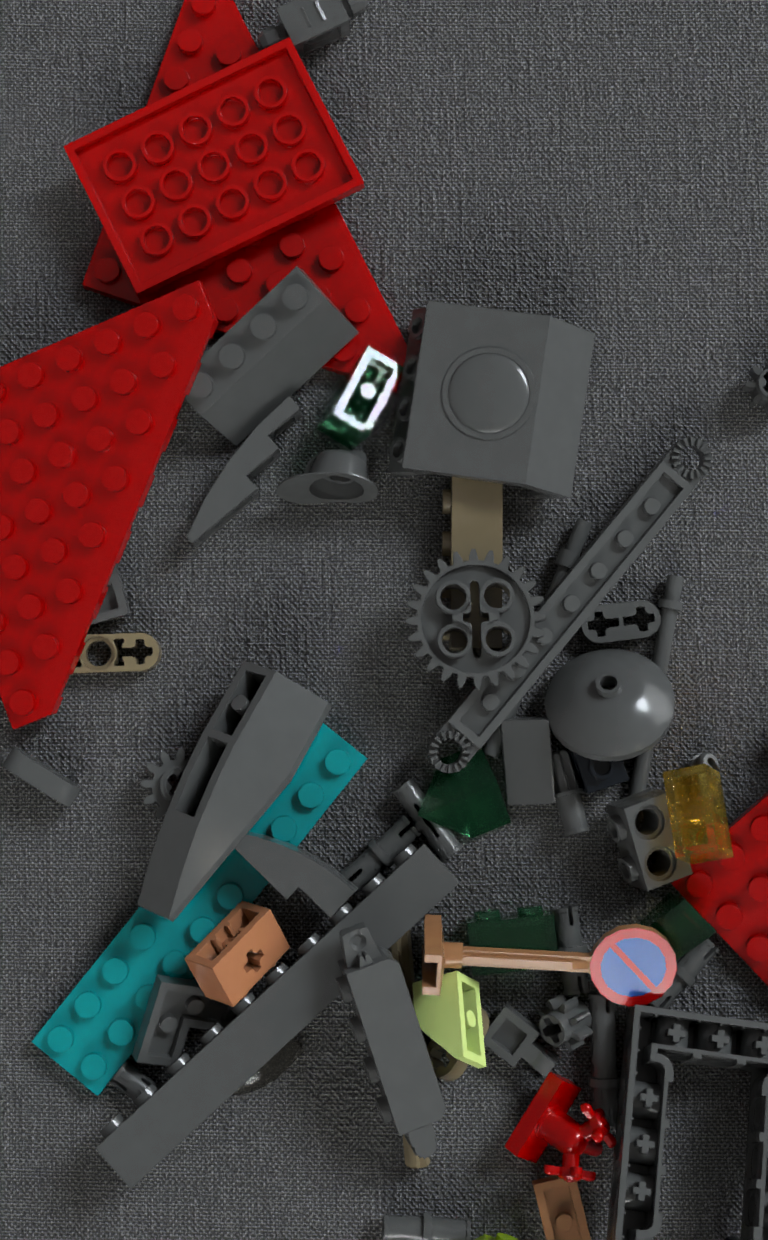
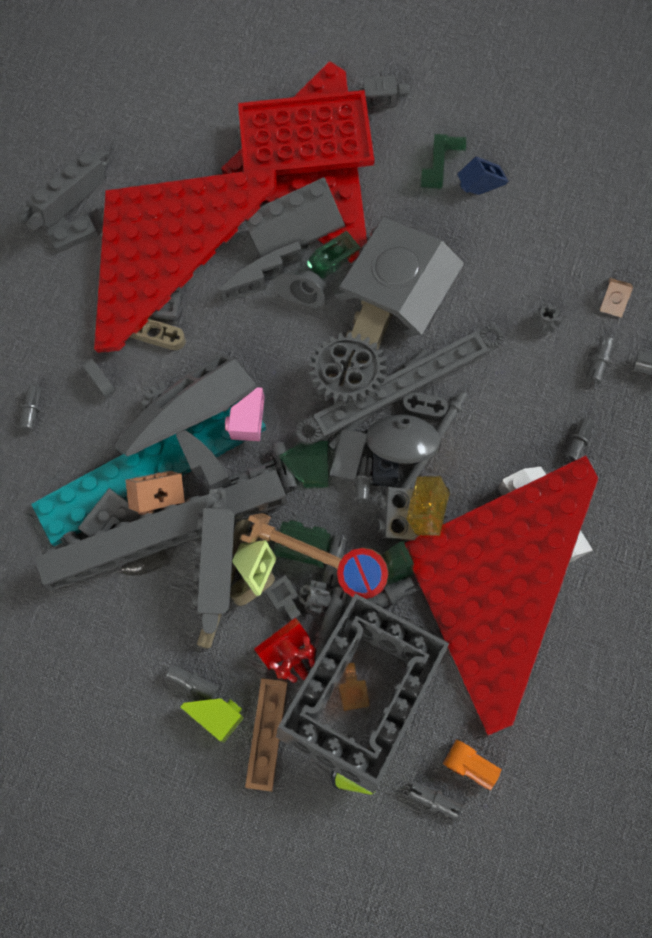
camera: 25 degrees right, 15 degrees down
(336, 766) = (246, 417): none -> bright pink slope
(479, 168) = (434, 176): none -> clear green beam
(563, 140) = (481, 176): none -> dark blue slope
(684, 1151) = (353, 692): none -> clear orange plate

